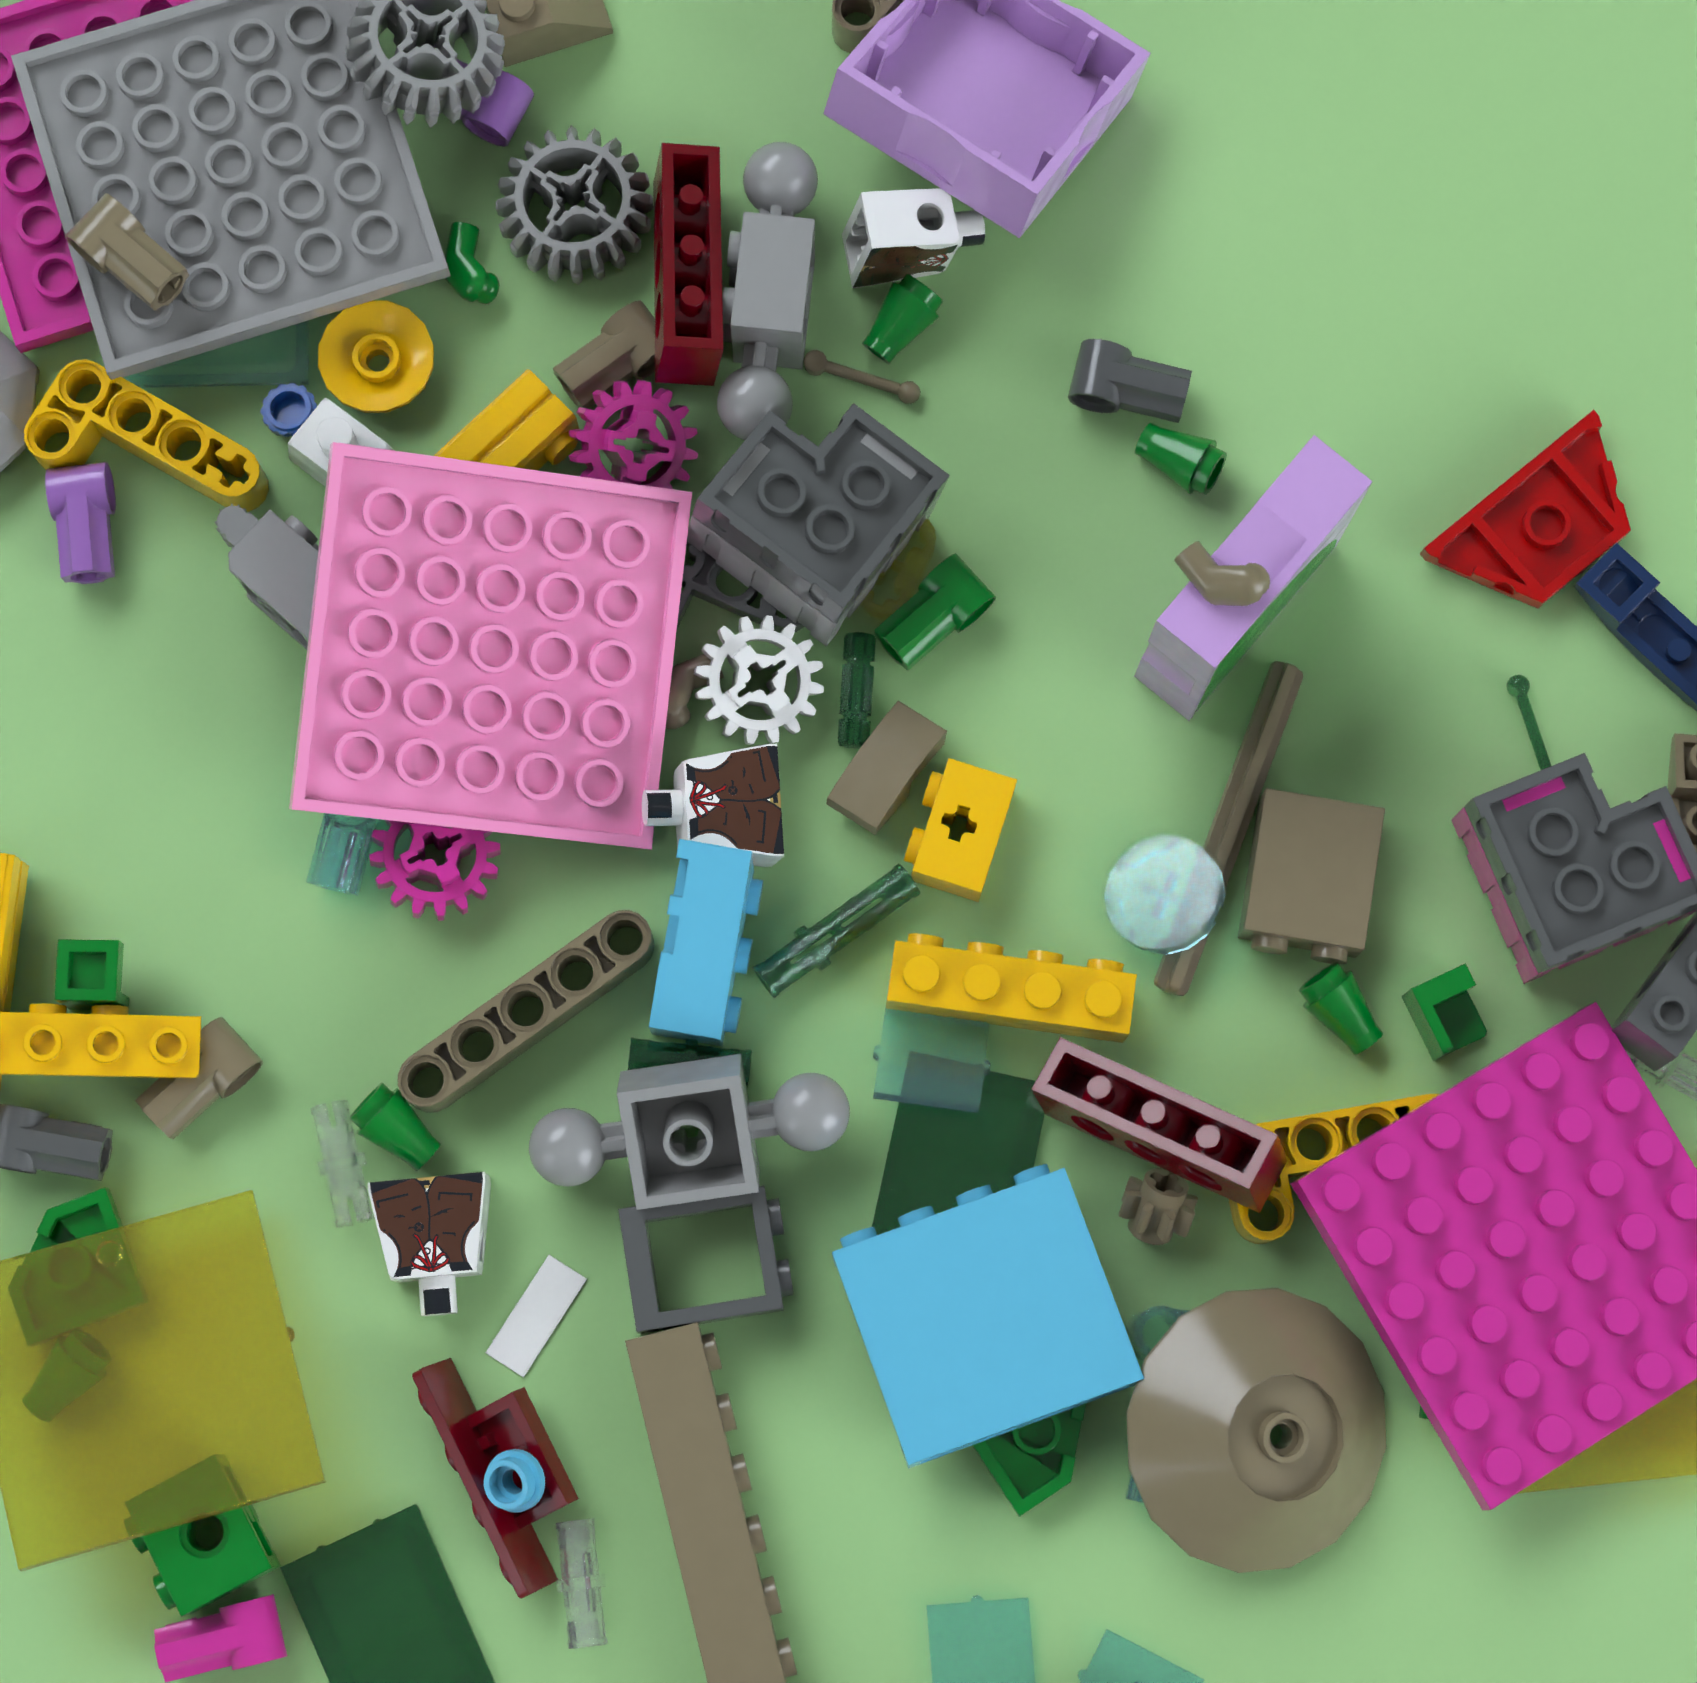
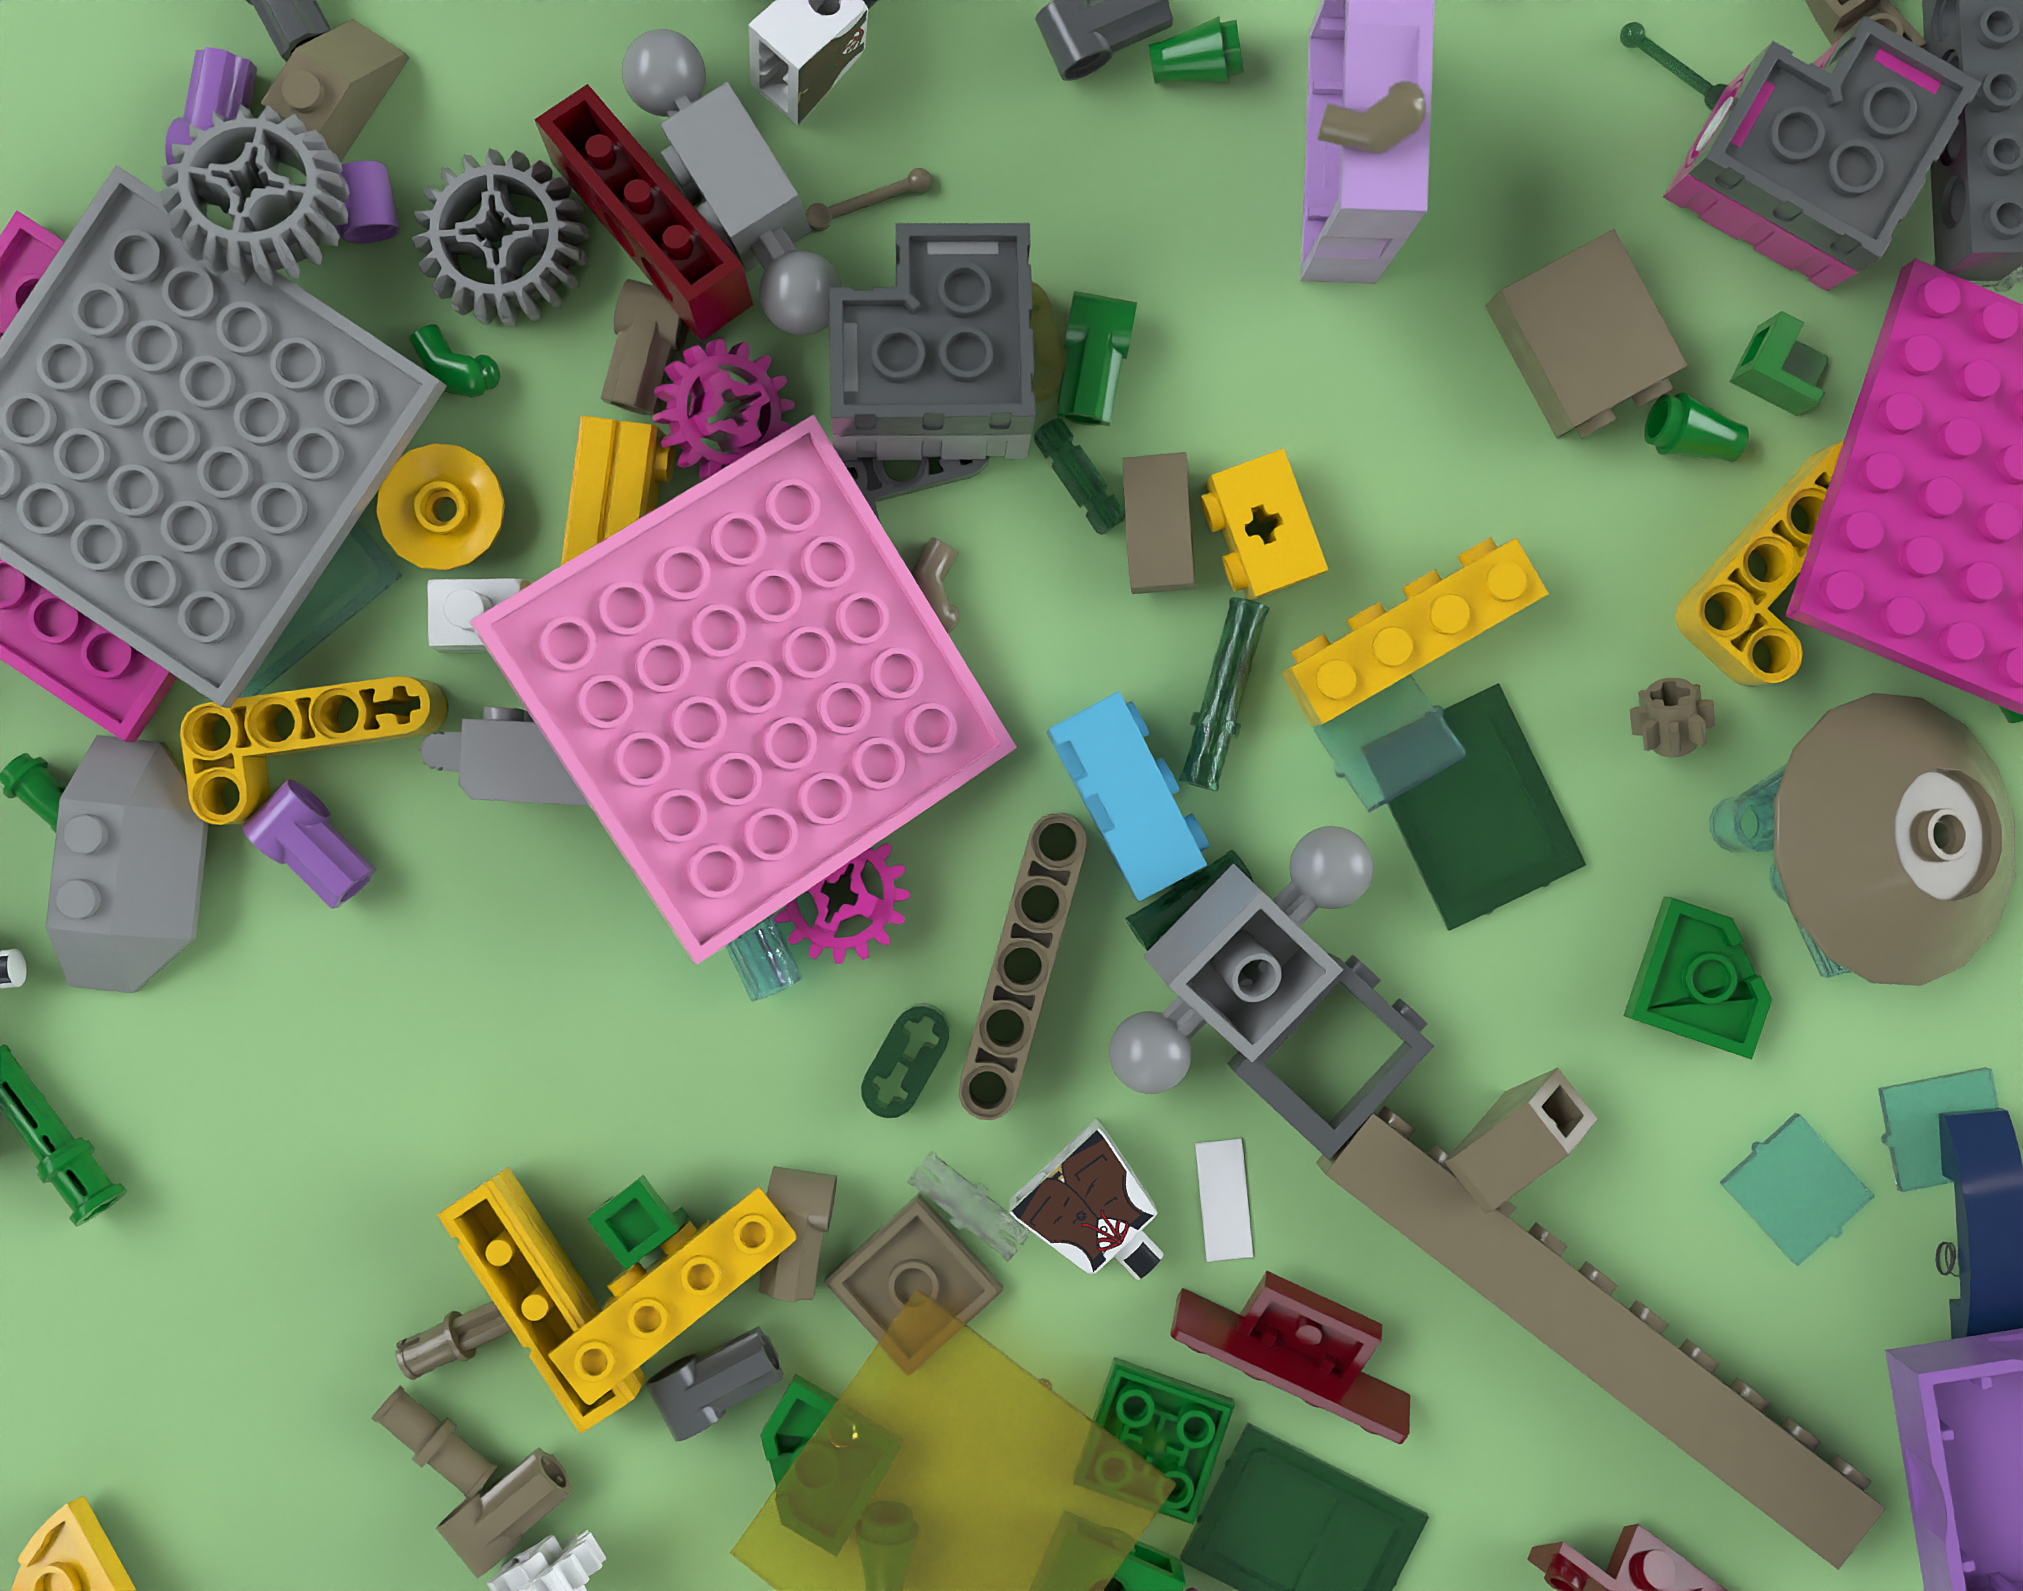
camera: 35 degrees left, 10 degrees up
(117, 243) = (132, 587): dark tan piece -> none
(271, 1164) = (909, 1254): none -> dark tan tile
(287, 408) = (403, 611): blue piece -> none
(358, 1458) = (1167, 1425): none -> green tile
(377, 1004) = (919, 1067): none -> clear green beam
(394, 1126) = (988, 1144): green cone -> none
(500, 1484) = (1324, 1357): medium azure plate -> none
(581, 1583) = (1434, 1386): clear pin -> none
(725, 802) = (1051, 664): torso -> none
(776, 702) = (1019, 541): white gear -> none
(792, 1429) = (1520, 1139): none -> dark tan slope
(902, 317) = (863, 115): green cone -> none
(986, 1314) = (1609, 920): medium azure panel -> none
(1160, 1124) = (1637, 650): brick -> none
(1164, 894) = (1477, 449): clear light blue tile -> none
(1239, 802) = (1485, 354): dark tan axle -> none

